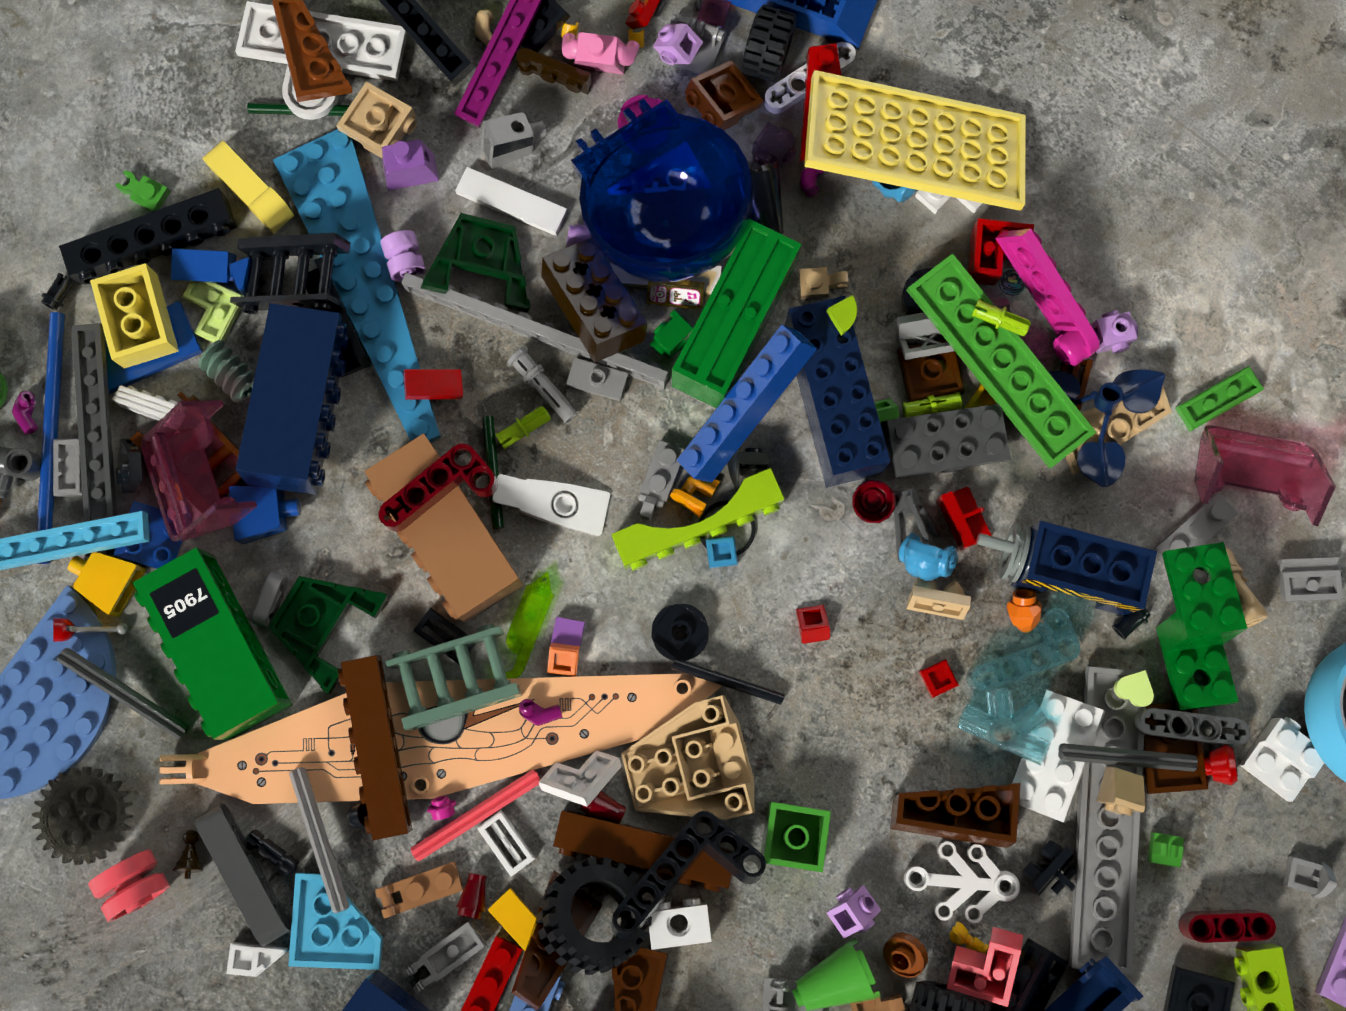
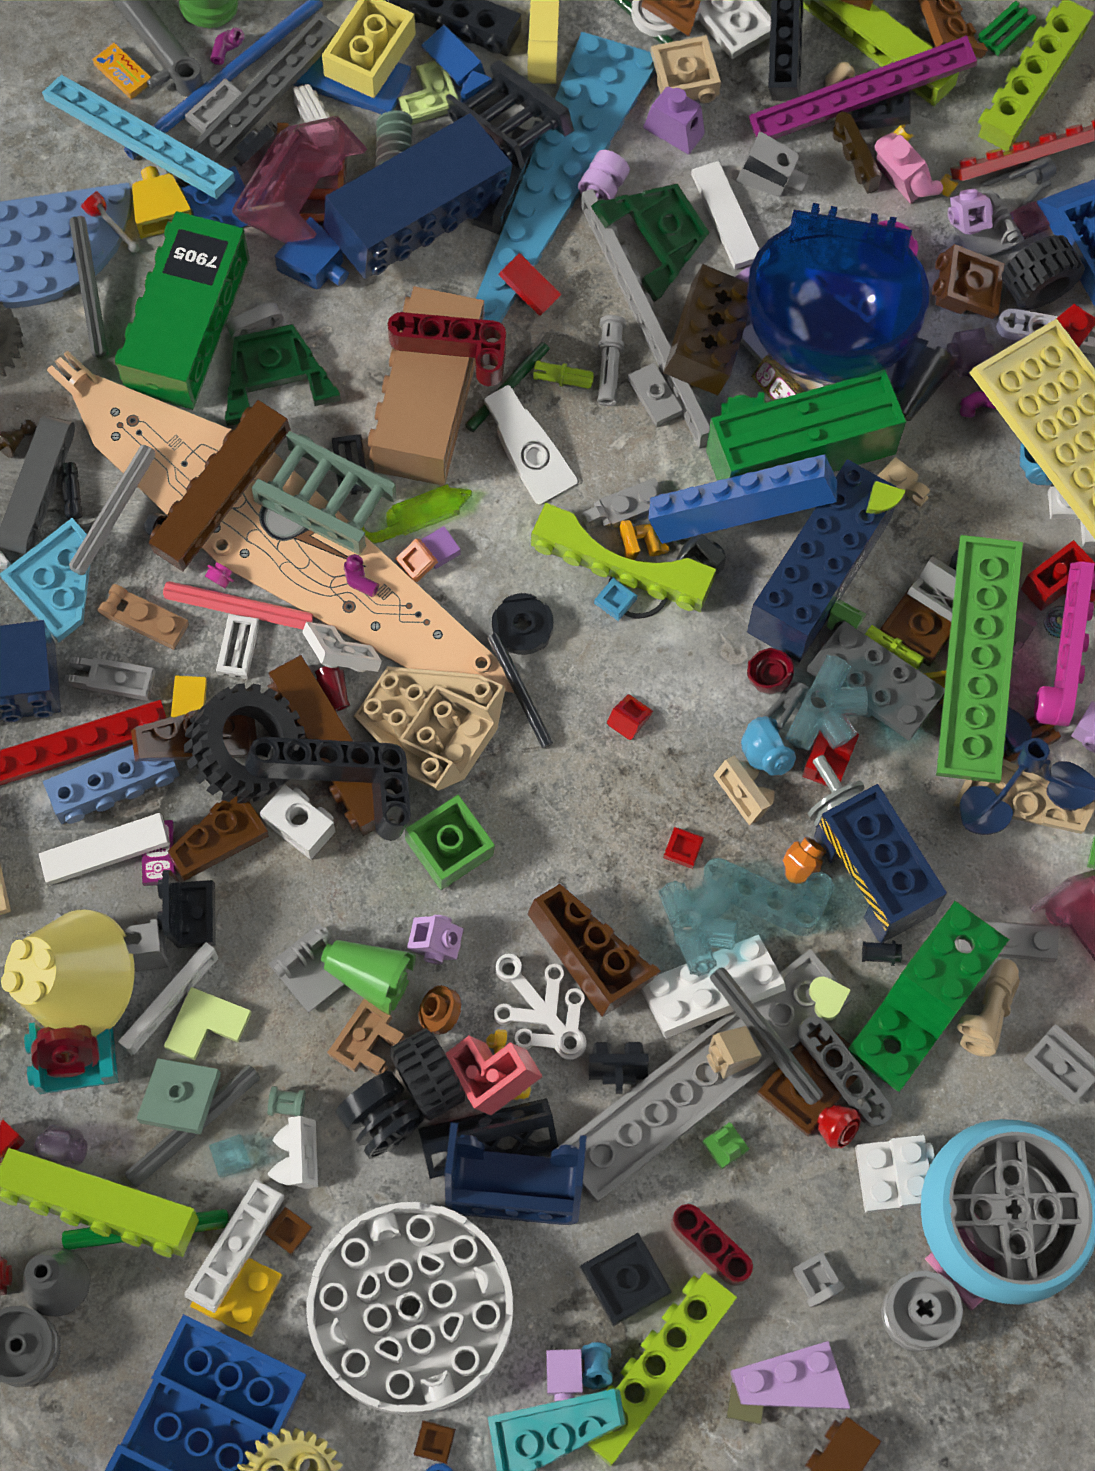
camera: 45 degrees right, 10 degrees down
(473, 897) = (173, 657): dark red cone -> none
(948, 485) = (839, 703): none -> clear light blue piece
(1001, 318) = (1009, 620): lime axle -> none

